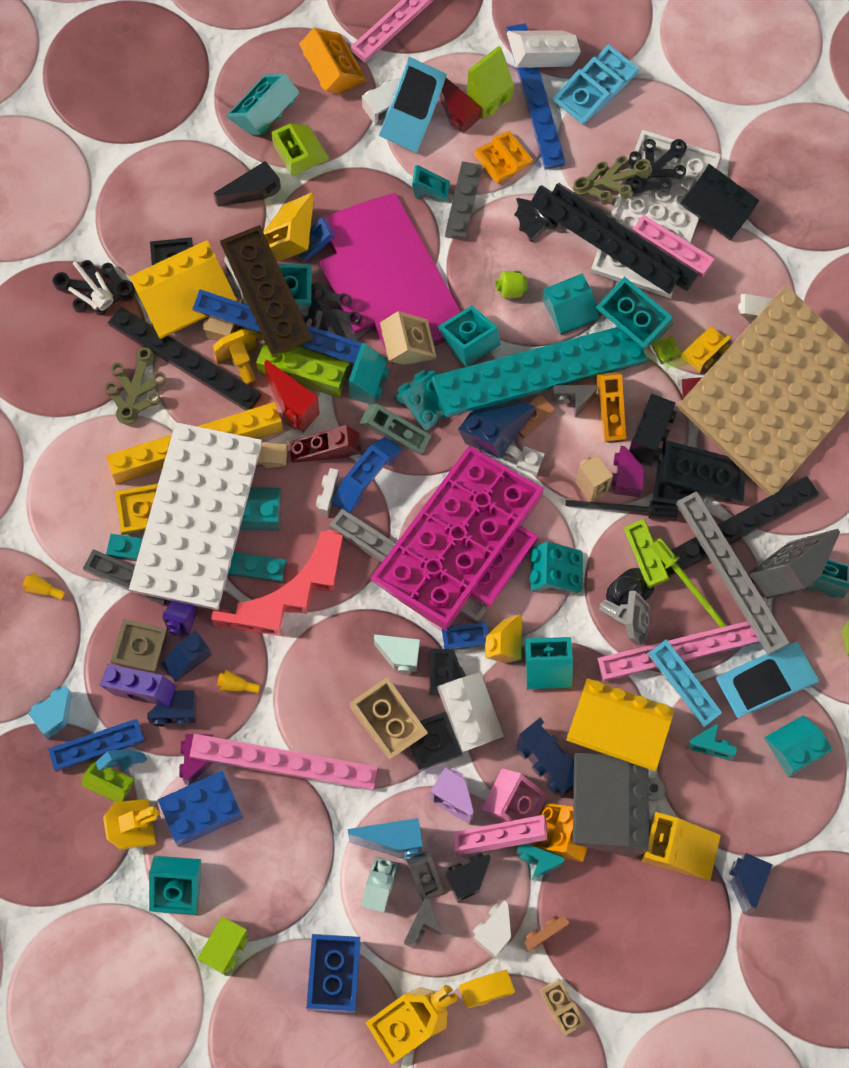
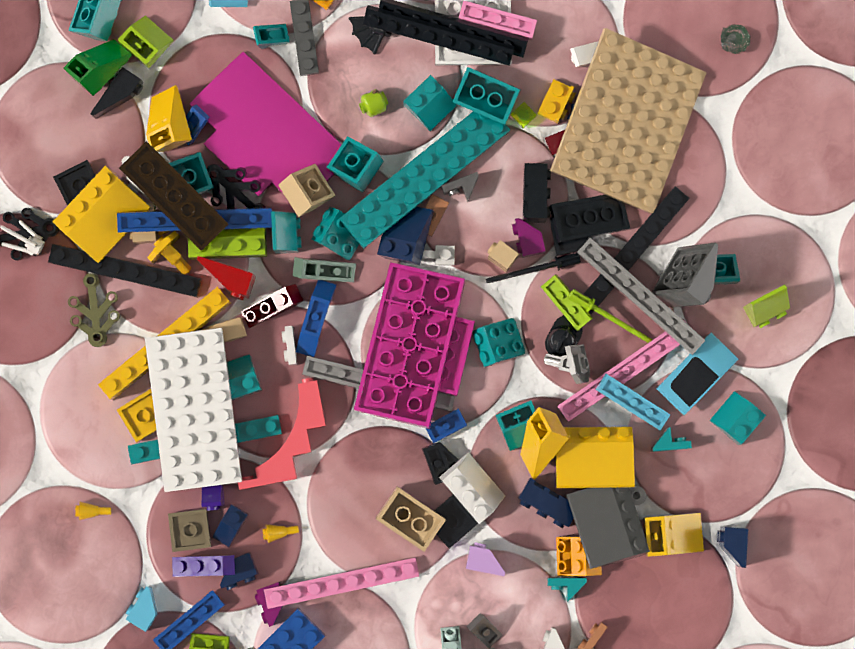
camera: 15 degrees left, 15 degrees up
(114, 572) = (140, 476): dark grey plate -> none
(124, 758) = (216, 625): dark azure slope -> none
(235, 152) = (97, 65): none -> green slope
(396, 838) = (451, 612): dark azure slope -> none
(399, 652) = (399, 459): light aqua slope -> none
(467, 879) = (517, 620): black slope -> none
(500, 835) = (531, 579): bright pink plate -> none
(504, 641) = (478, 418): yellow slope -> none
(513, 798) = (532, 546): bright pink slope -> none
(568, 682) = (542, 440): none -> yellow slope
(611, 405) = (495, 182): light orange slope -> none

